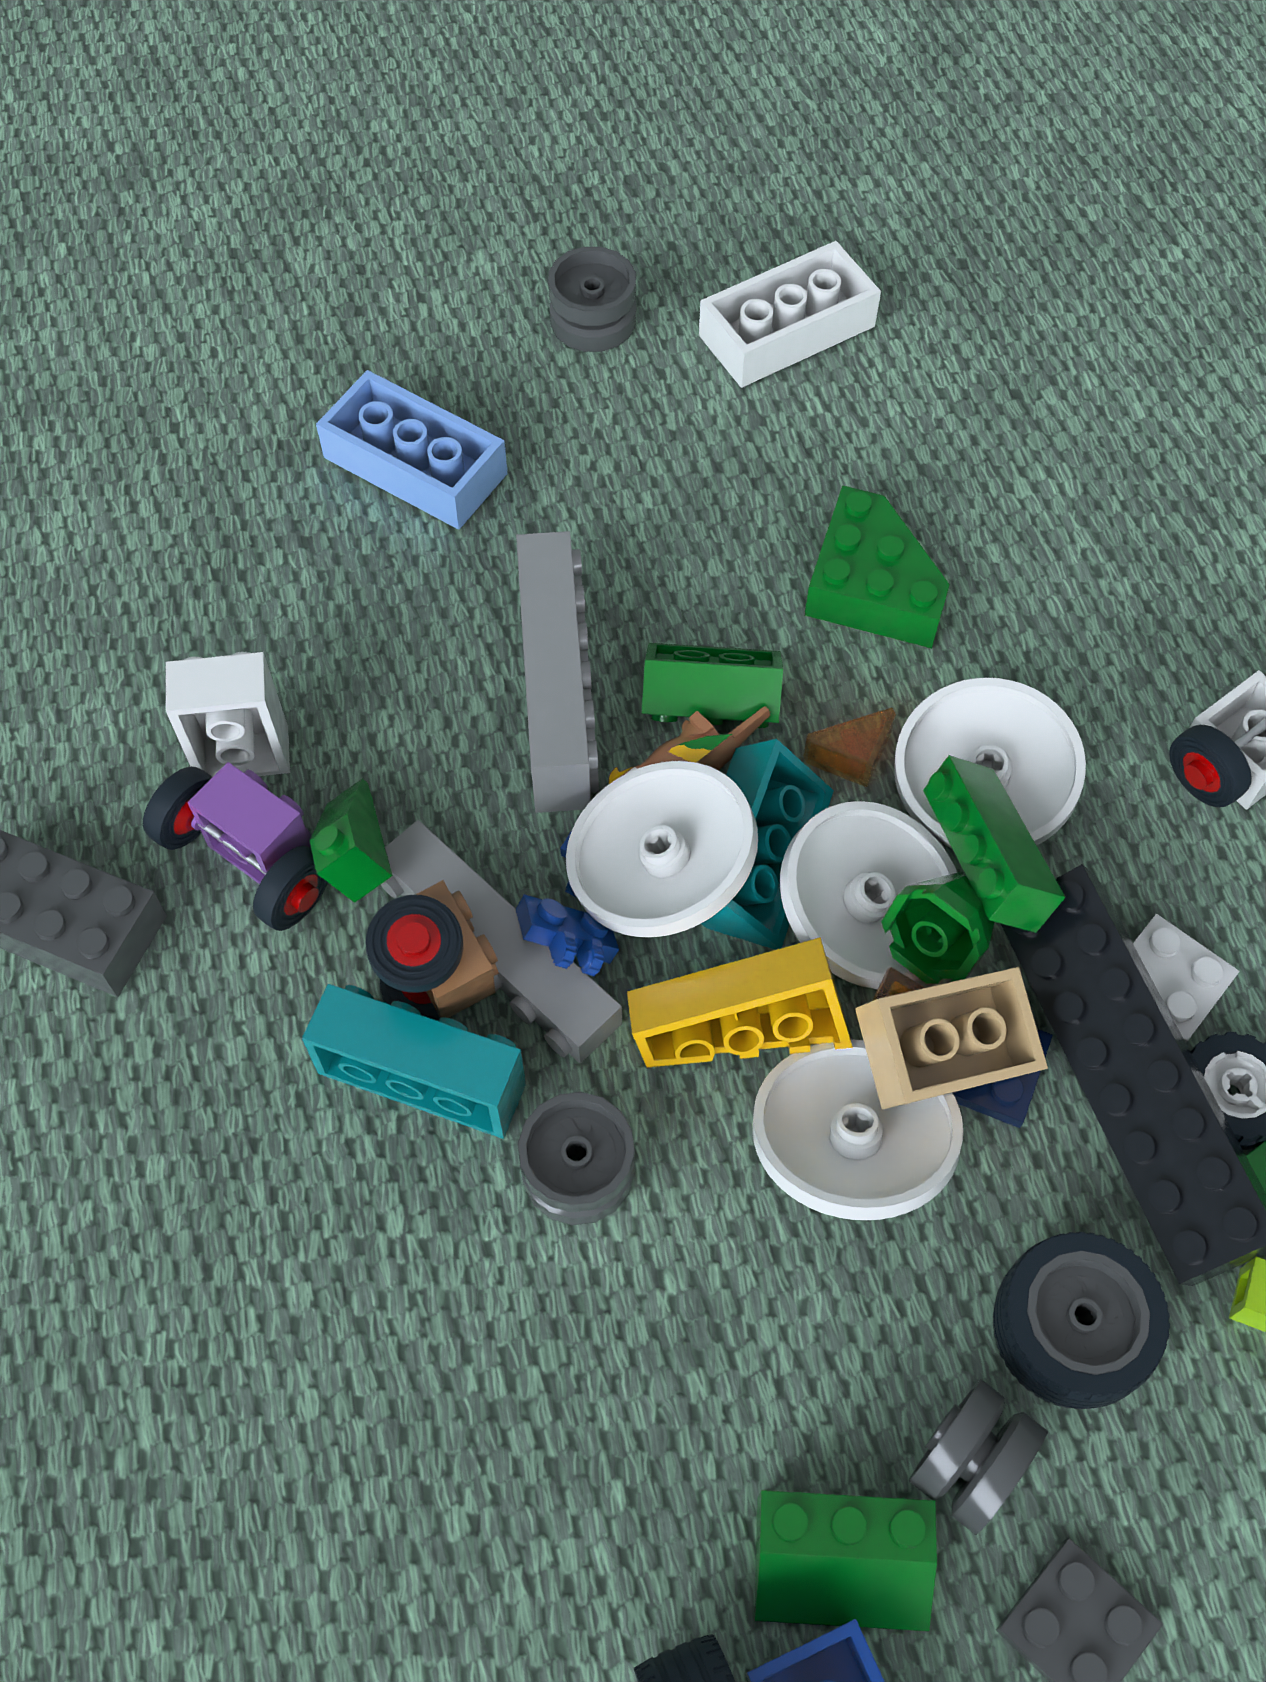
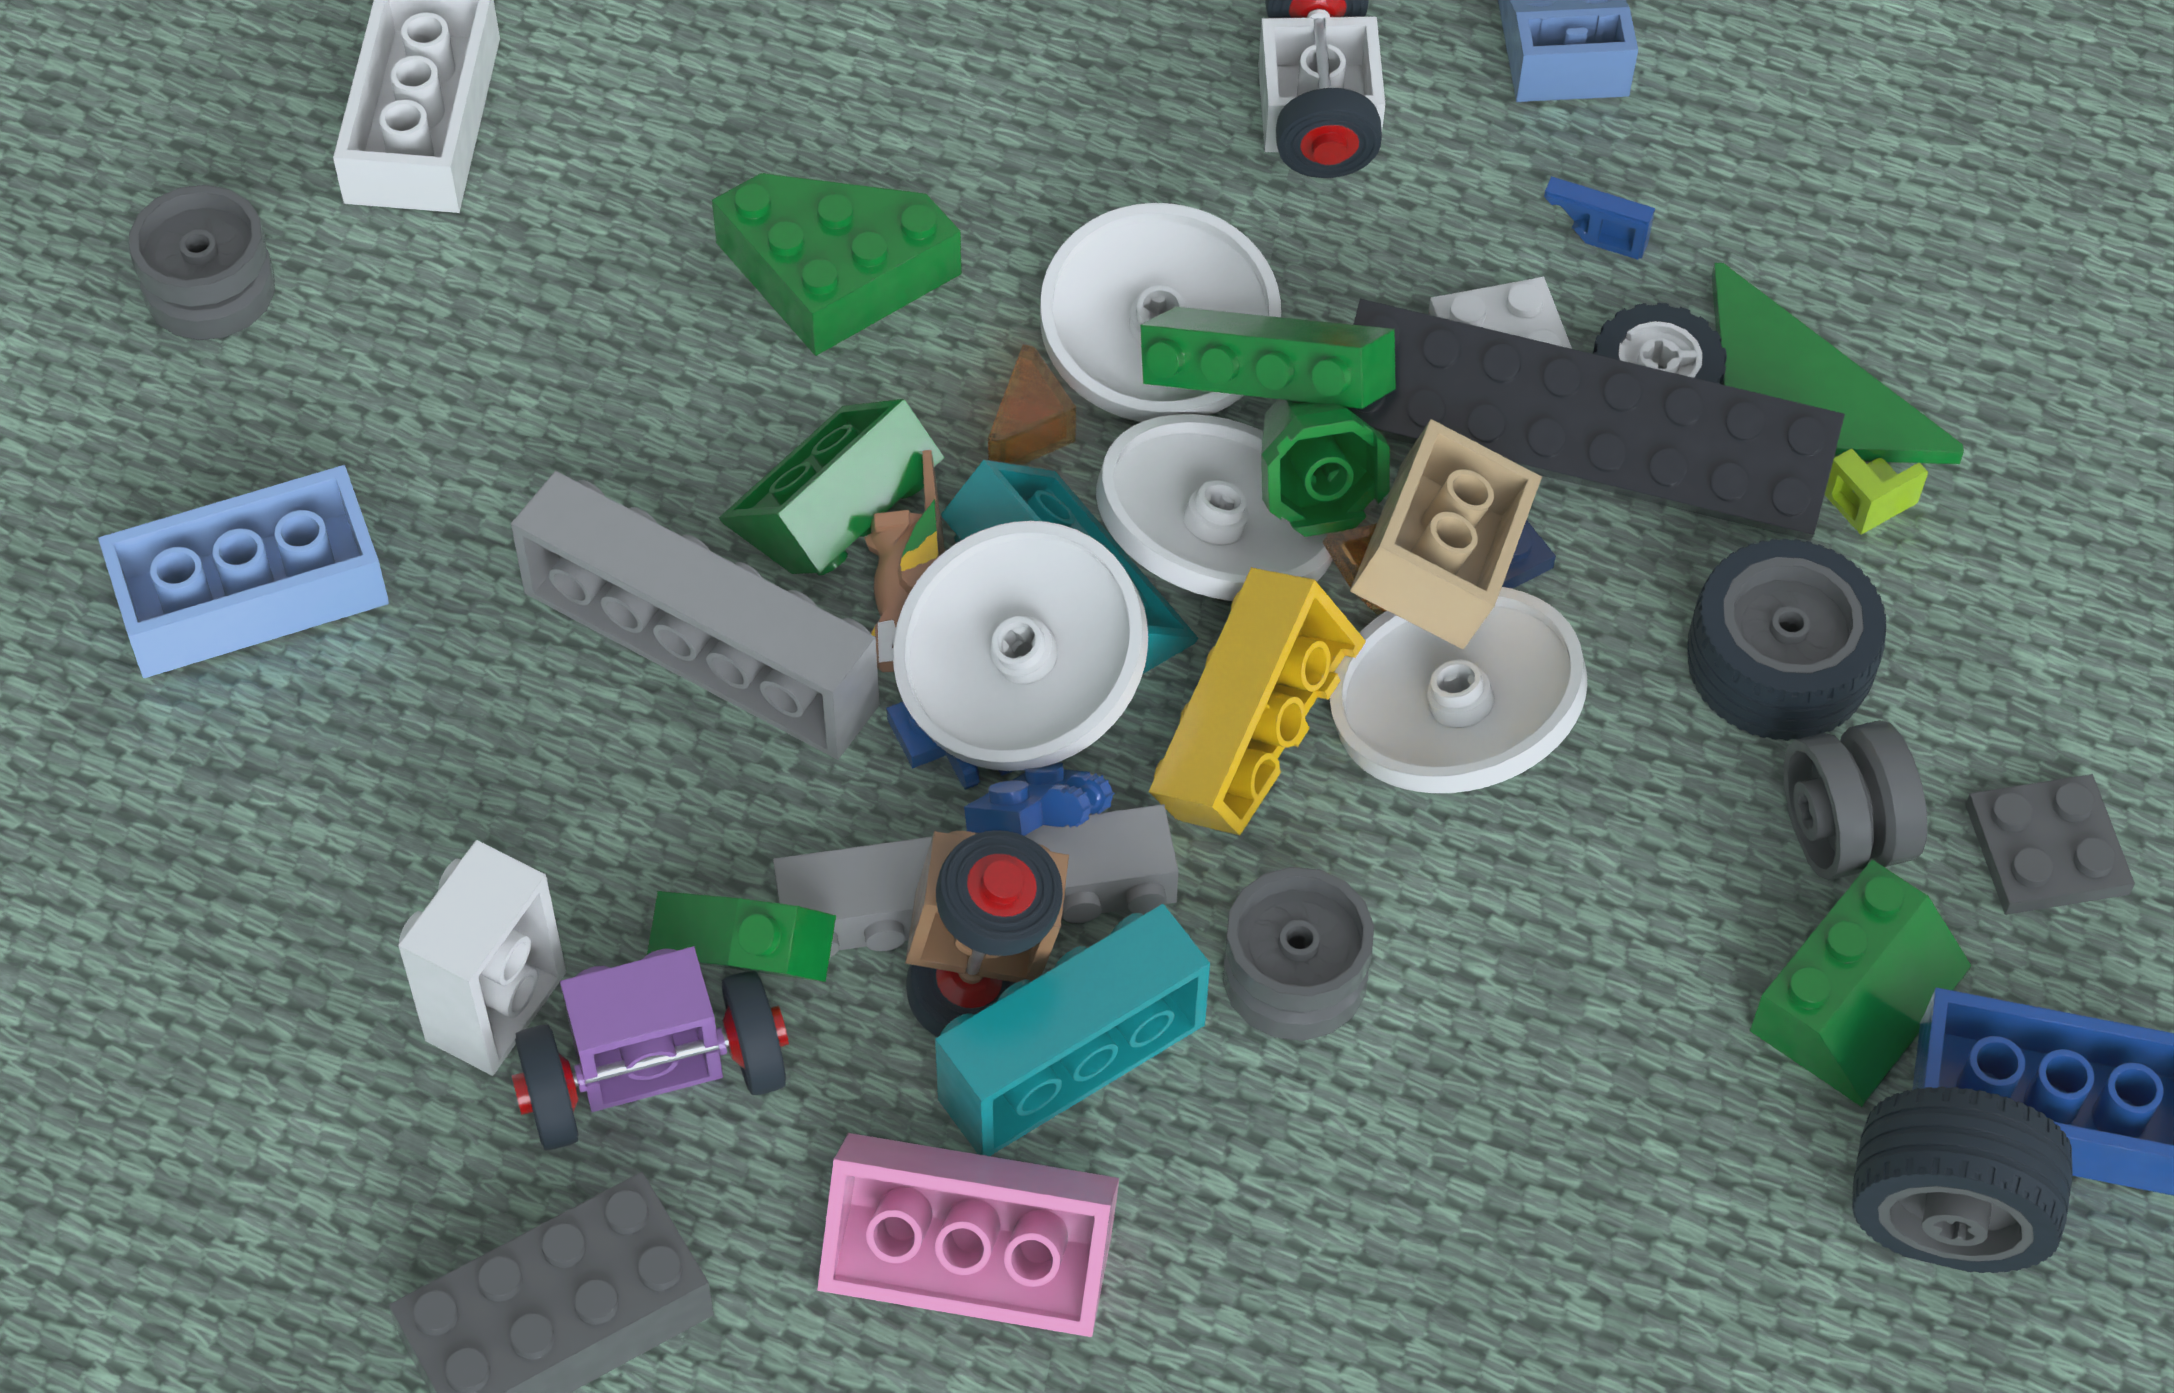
camera: 55 degrees left, 5 degrees down
(251, 1097) = (967, 1234): none -> bright pink slope

